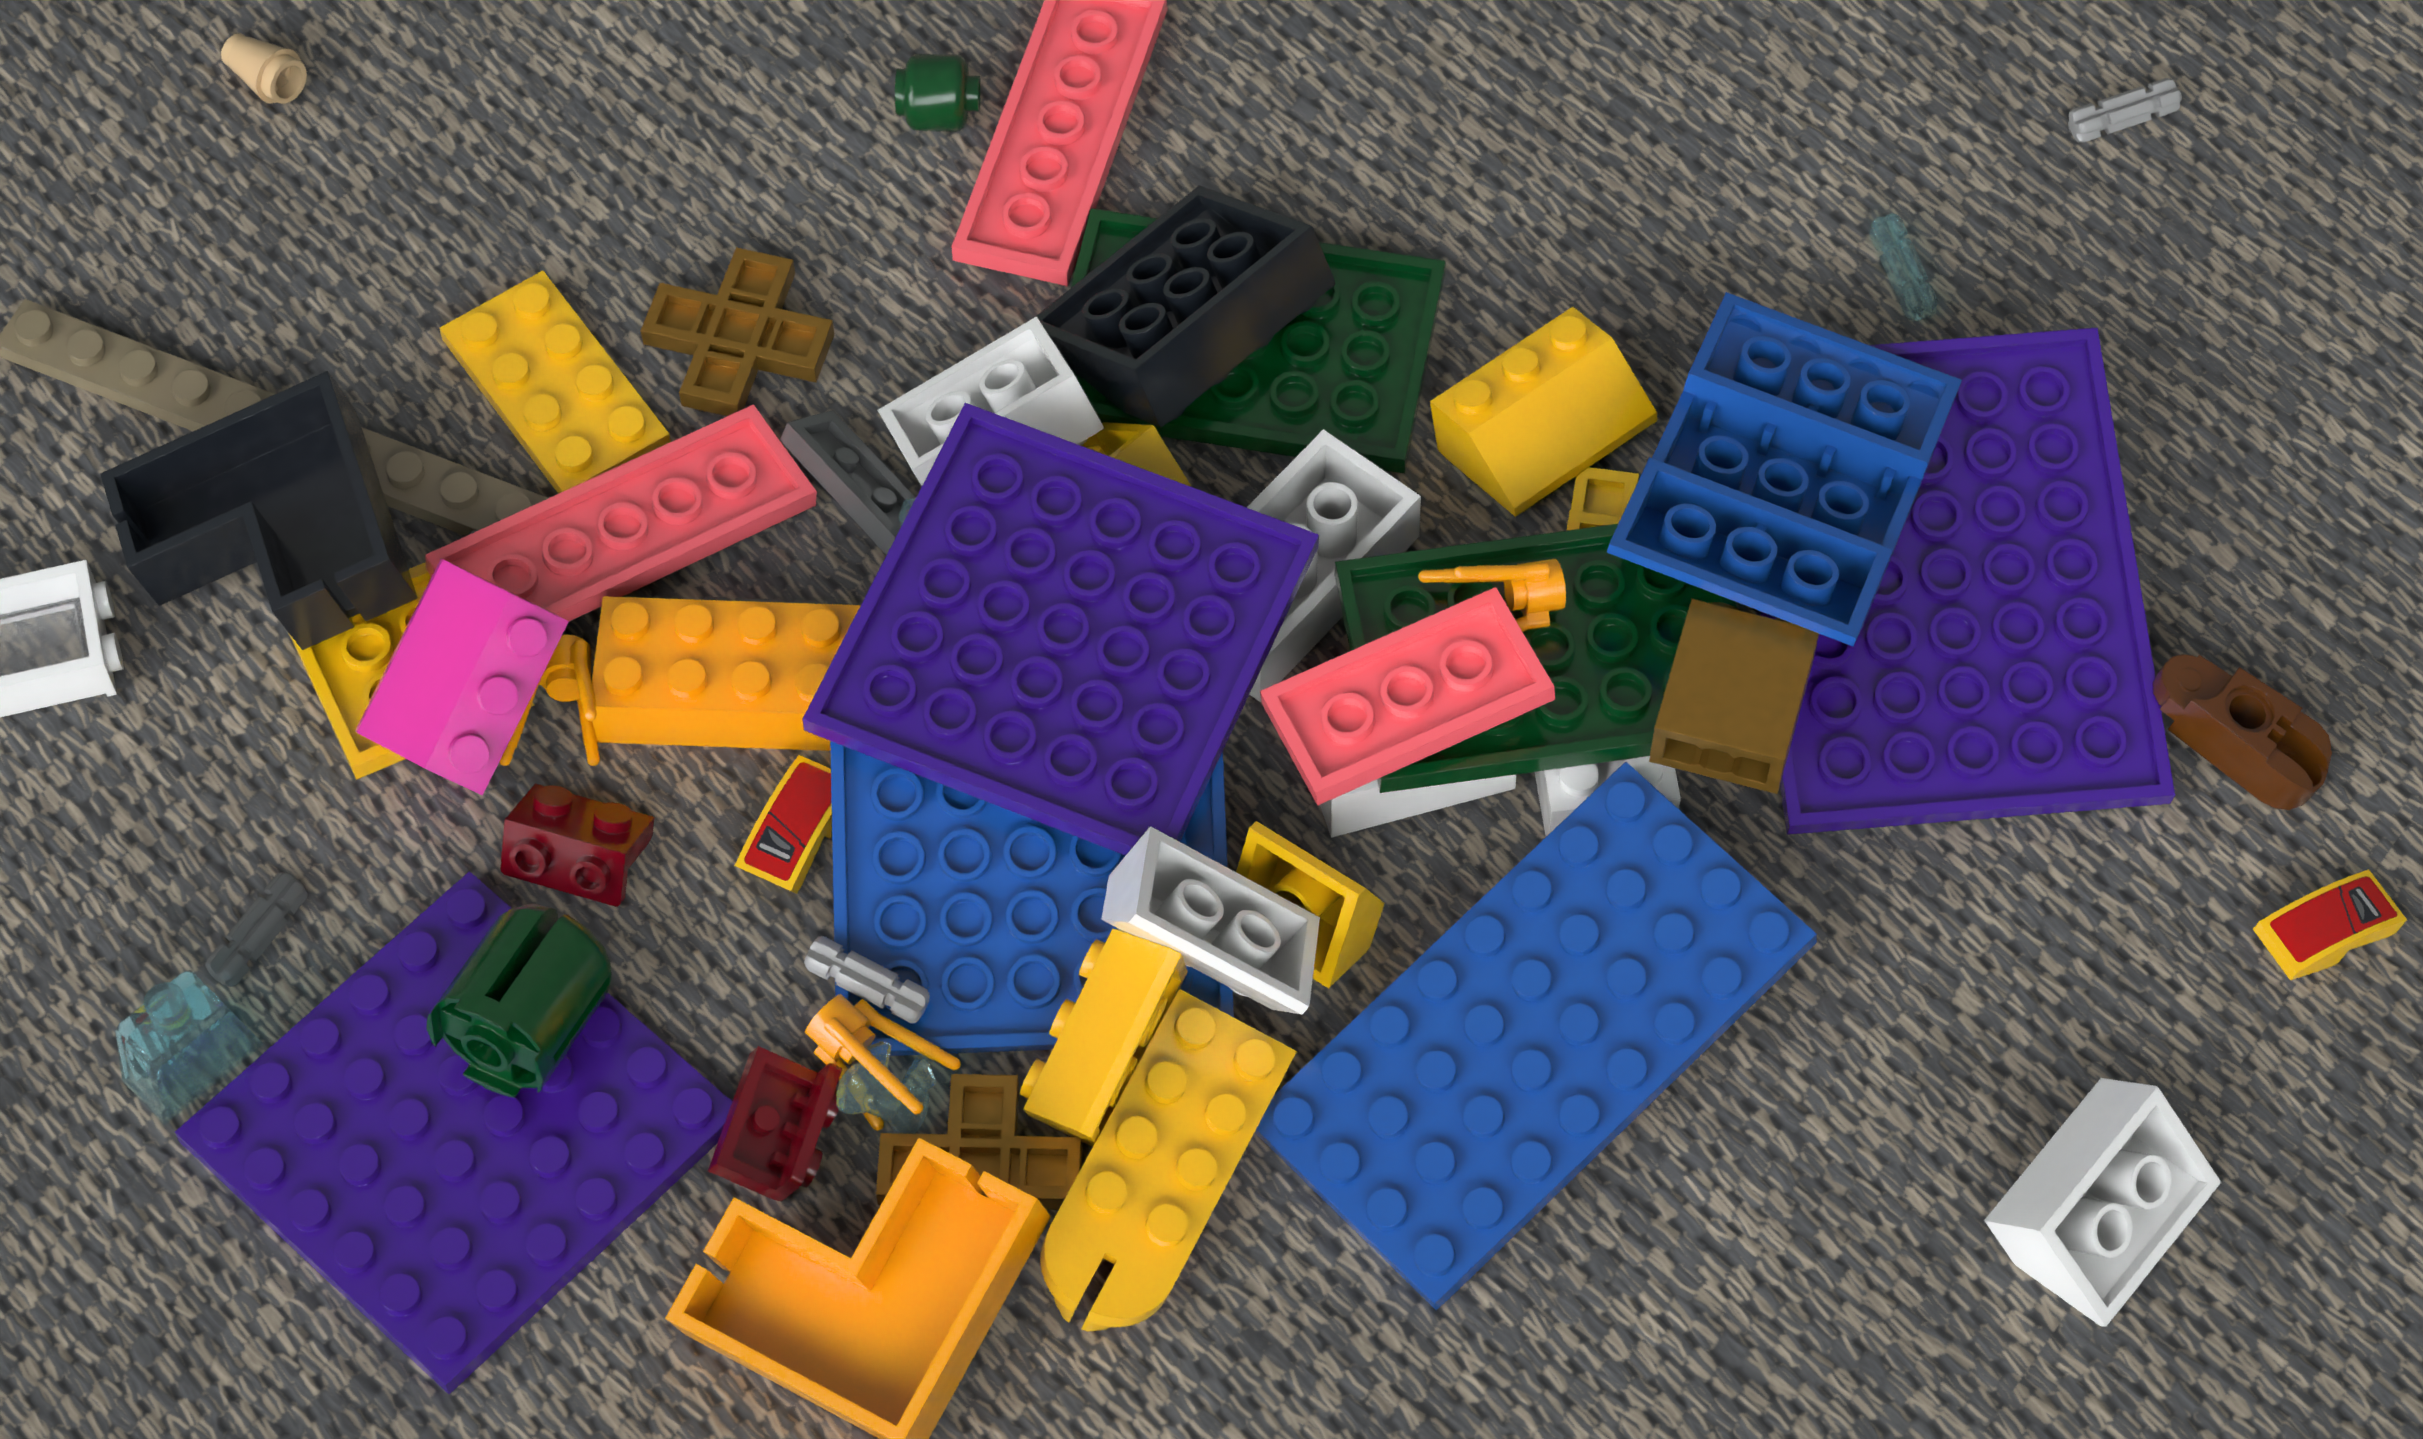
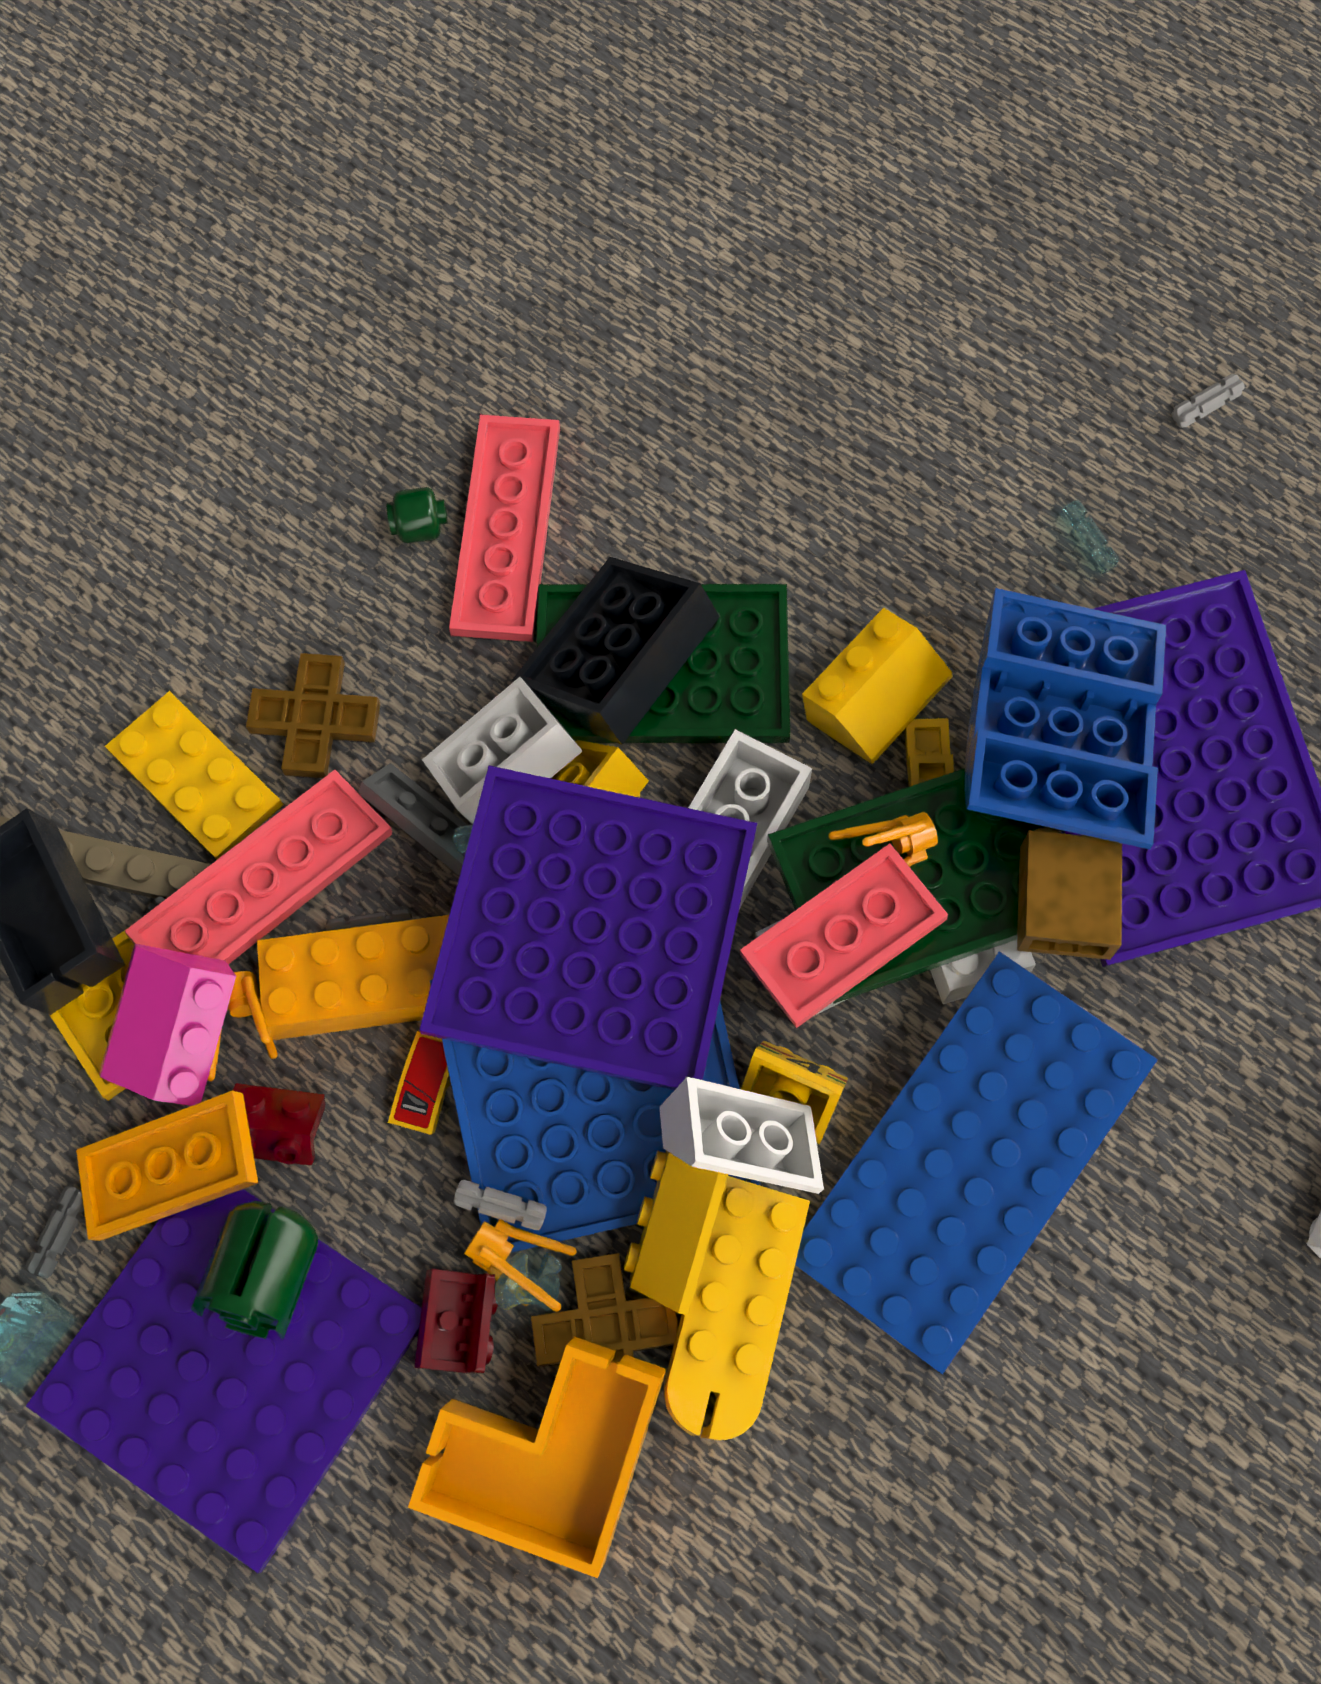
camera: 10 degrees left, 10 degrees up
(423, 859) = (166, 1166): none -> light orange plate

